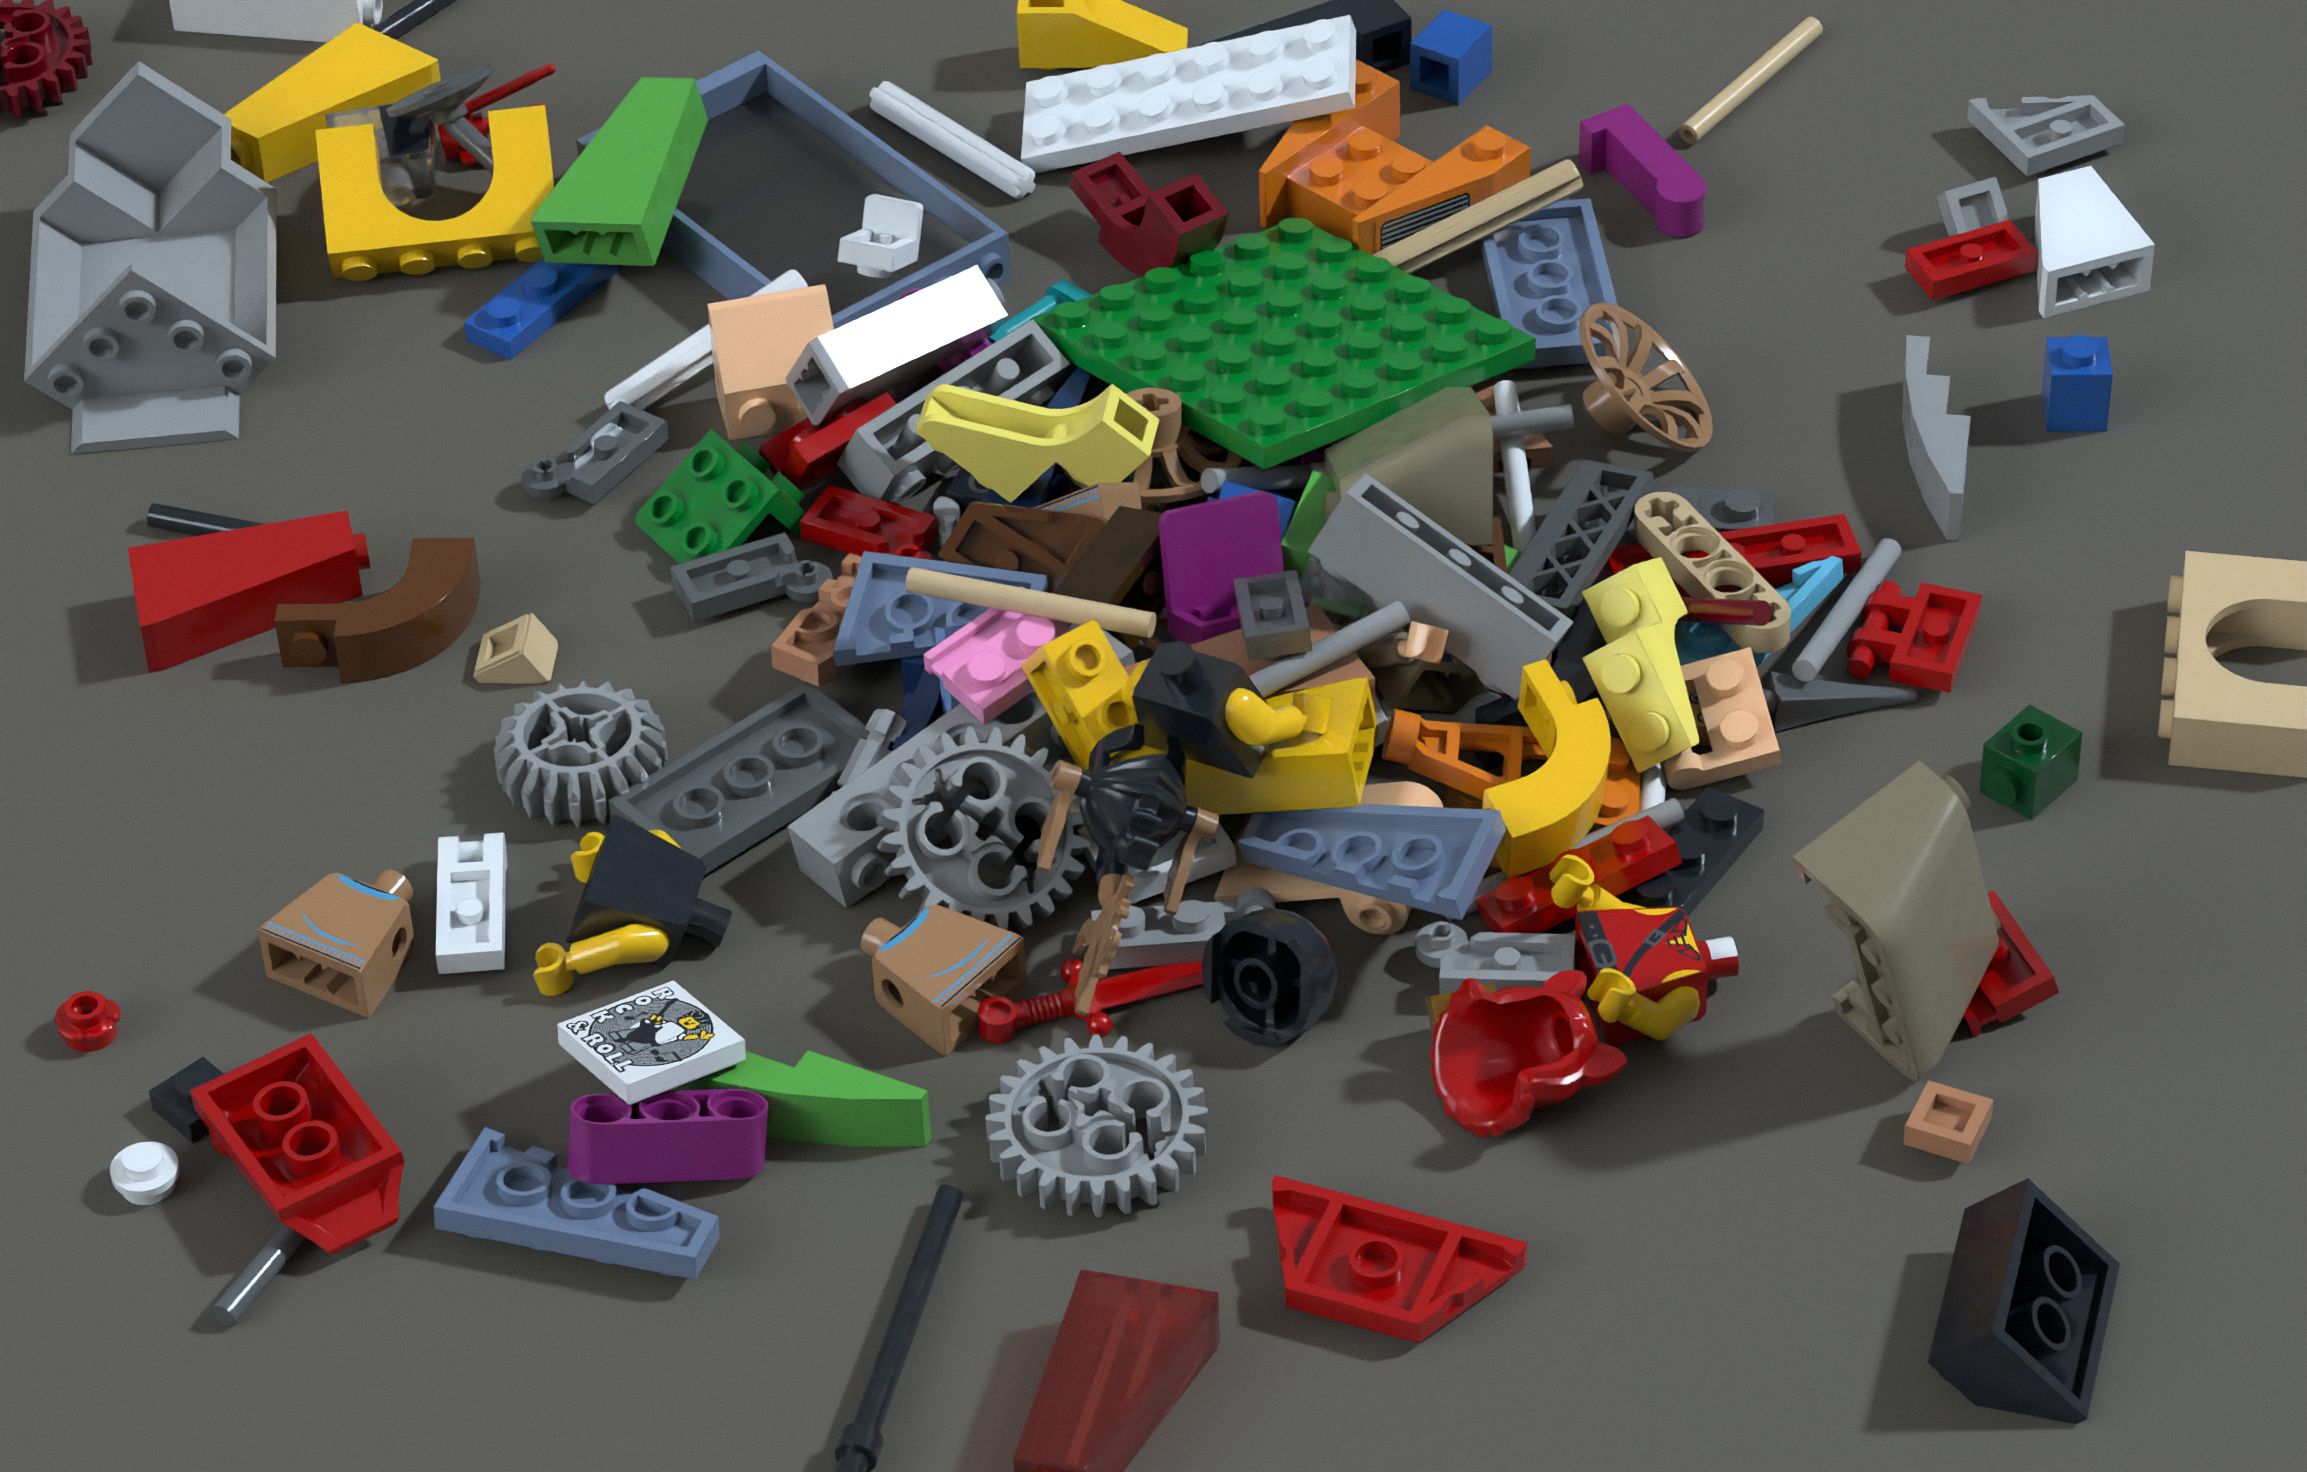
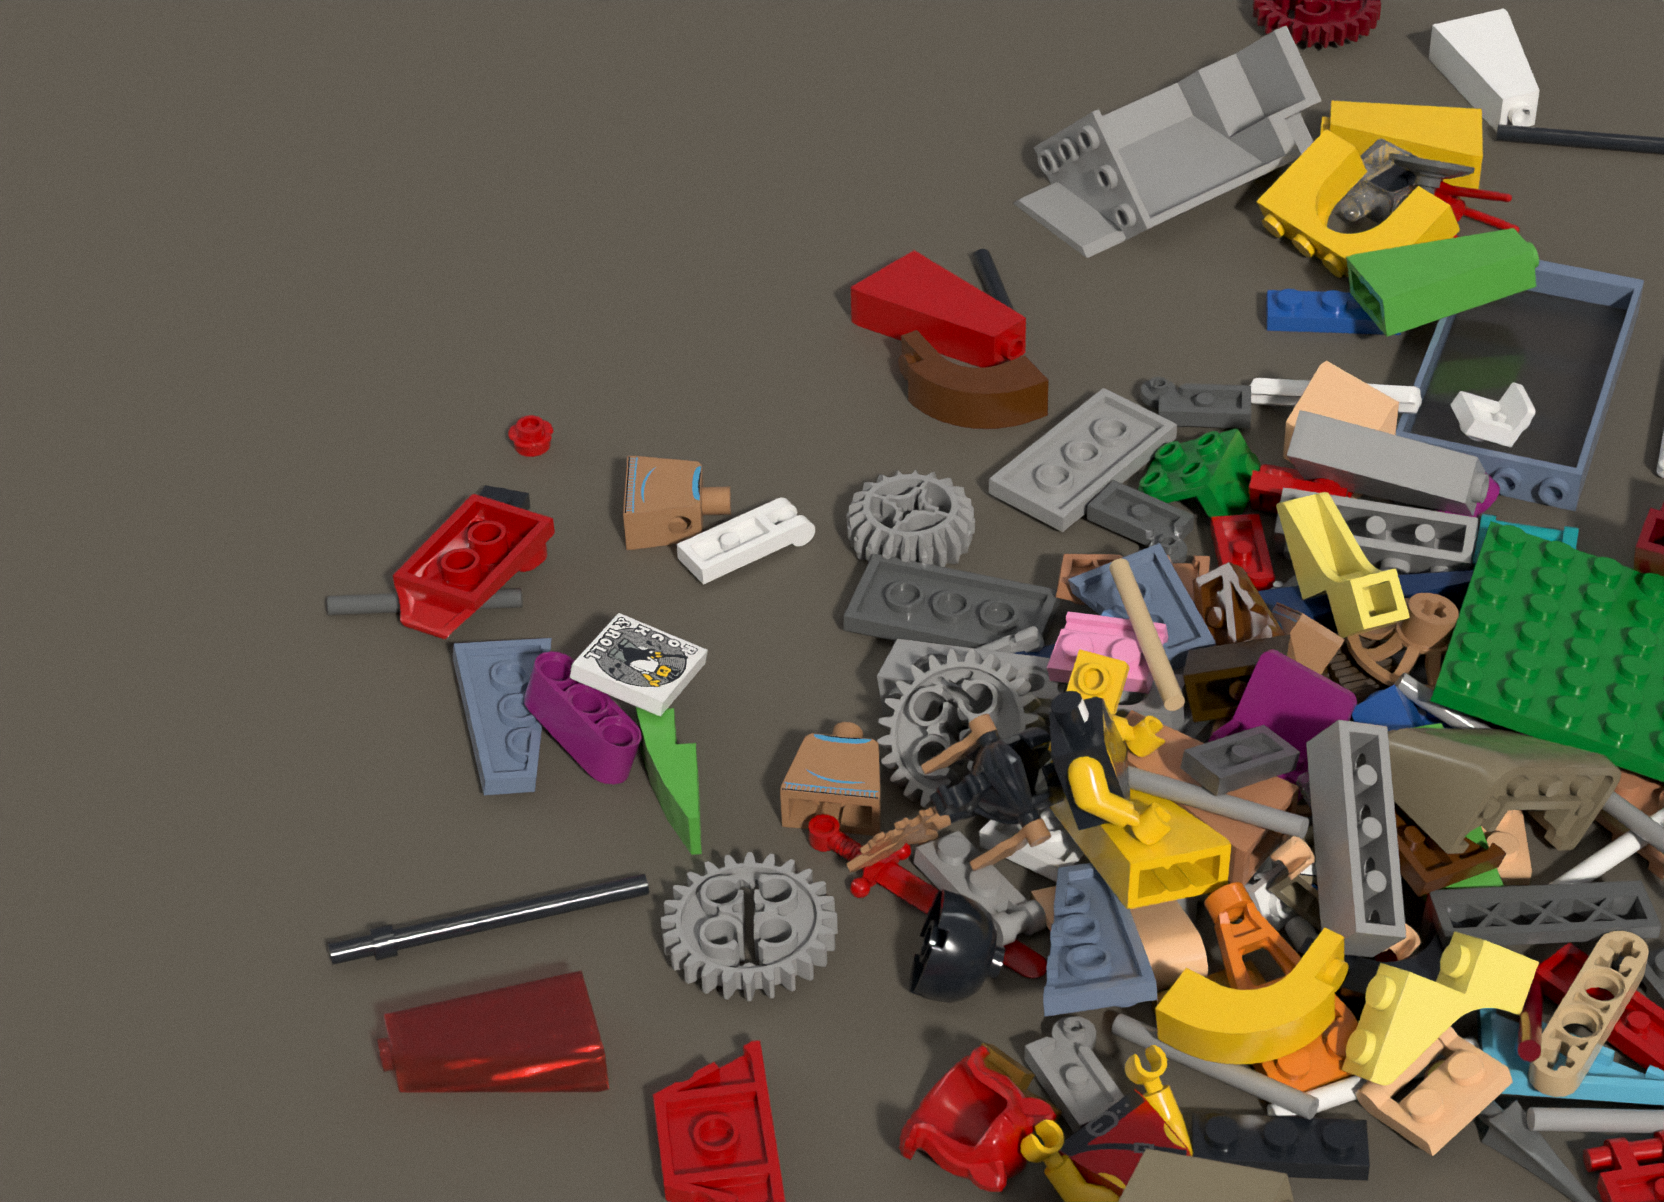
camera: 60 degrees right, 0 degrees up
(145, 1172) = (422, 517): white plate -> none
(517, 653) = (987, 456): tan slope -> none
(602, 580) = (1080, 458): none -> light grey plate
(632, 906) = (784, 606): black torso -> none
(1618, 861) = (1201, 1085): red plate -> none

